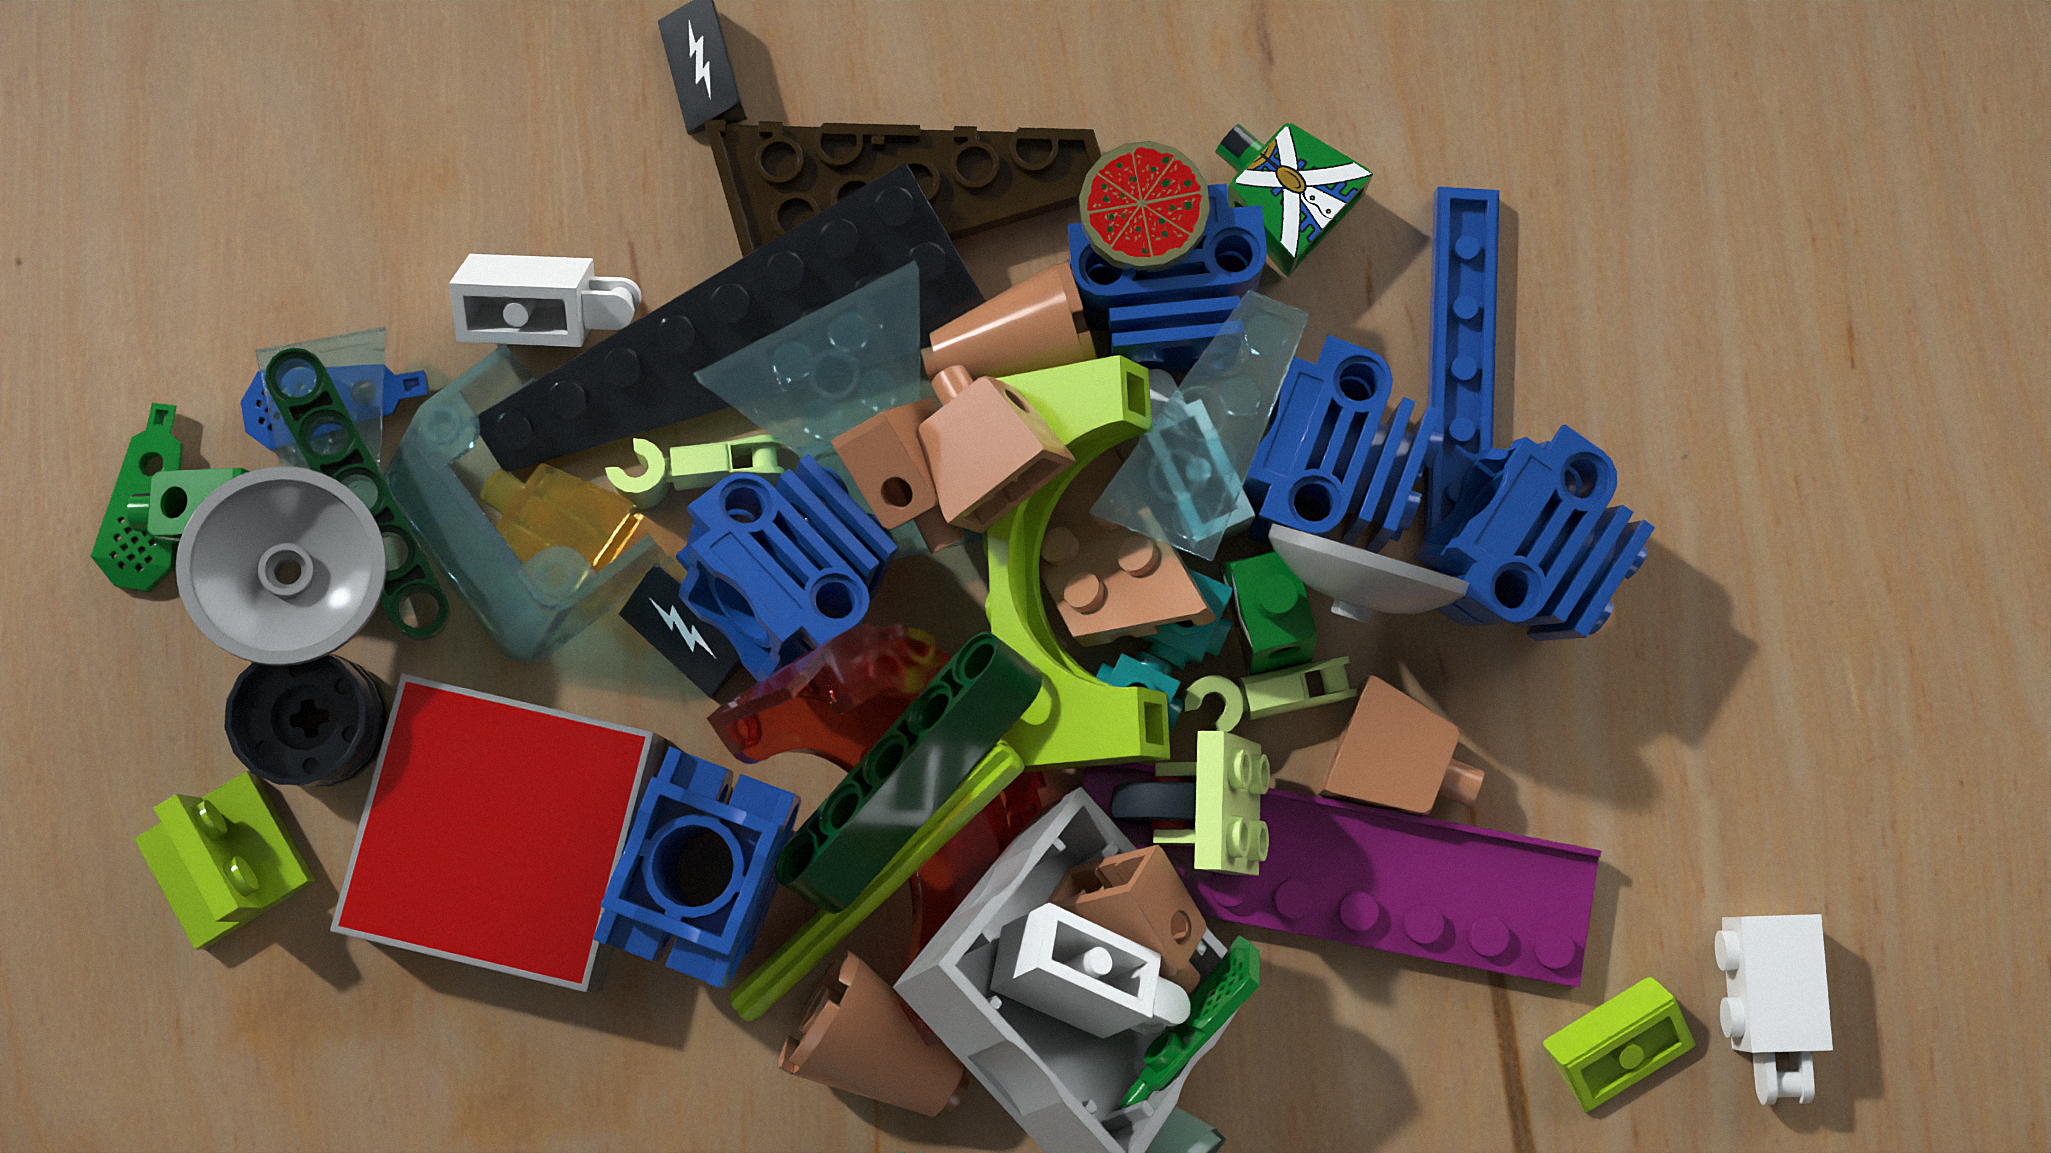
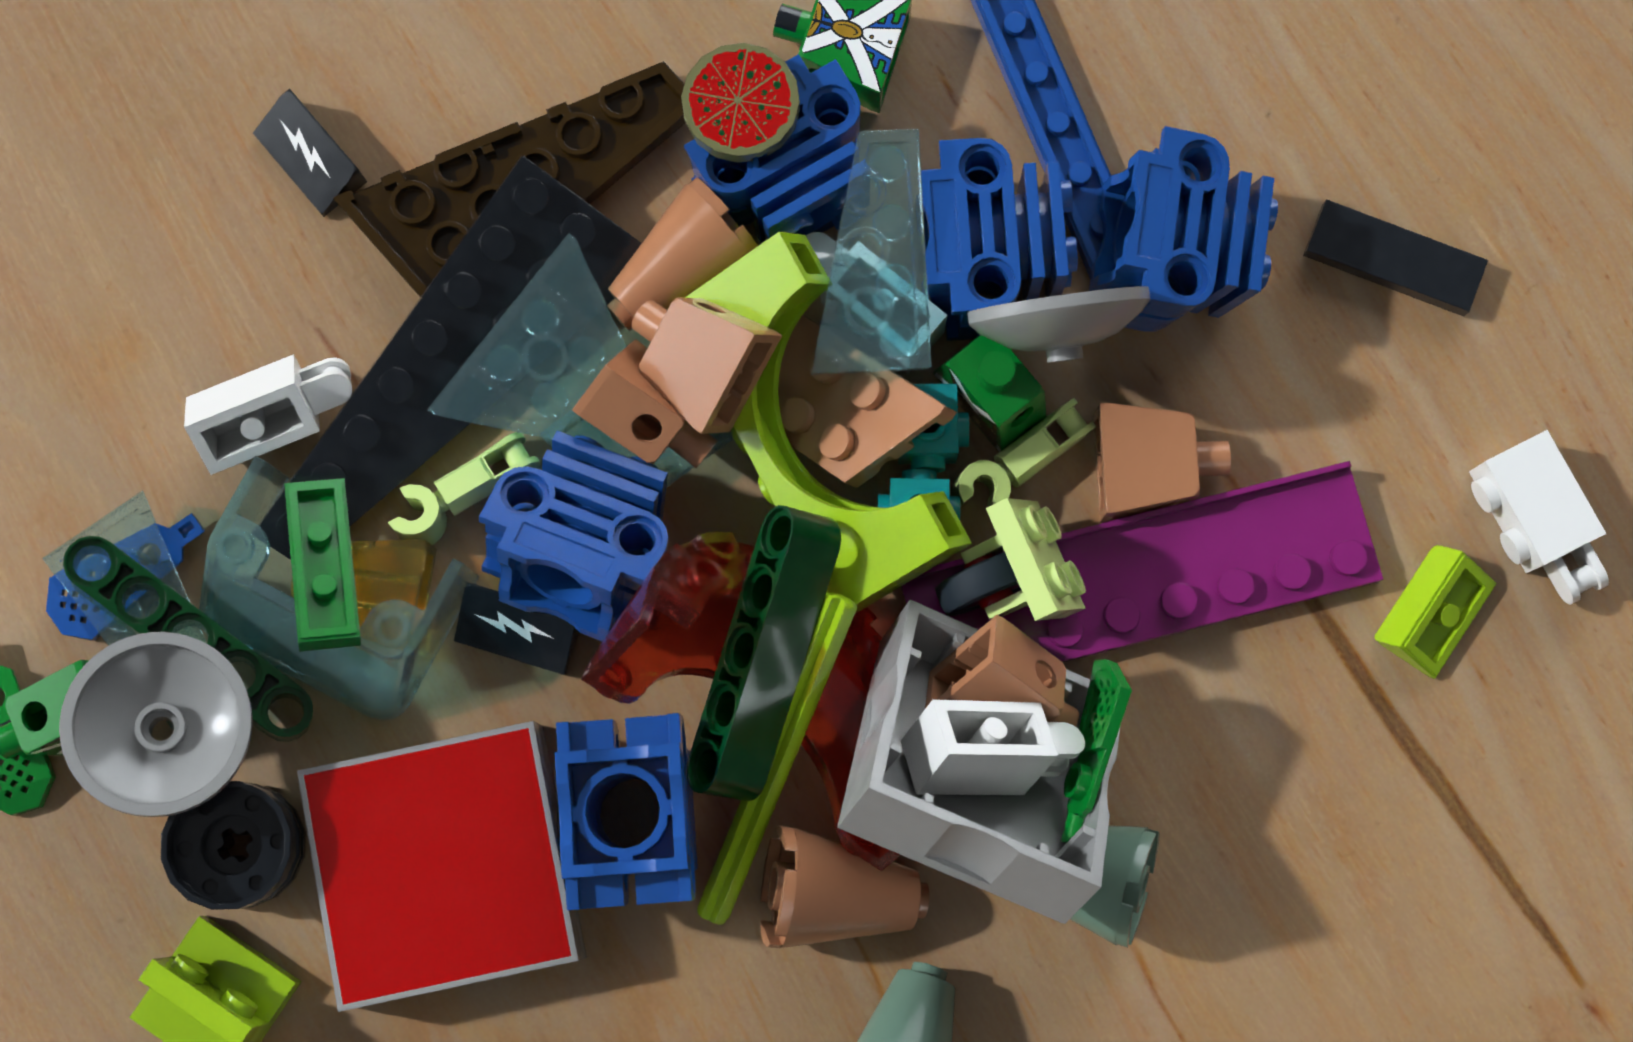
camera: 25 degrees left, 0 degrees up
(518, 481) = (322, 565): none -> green tile
(1748, 663) = (1395, 258): none -> black tile

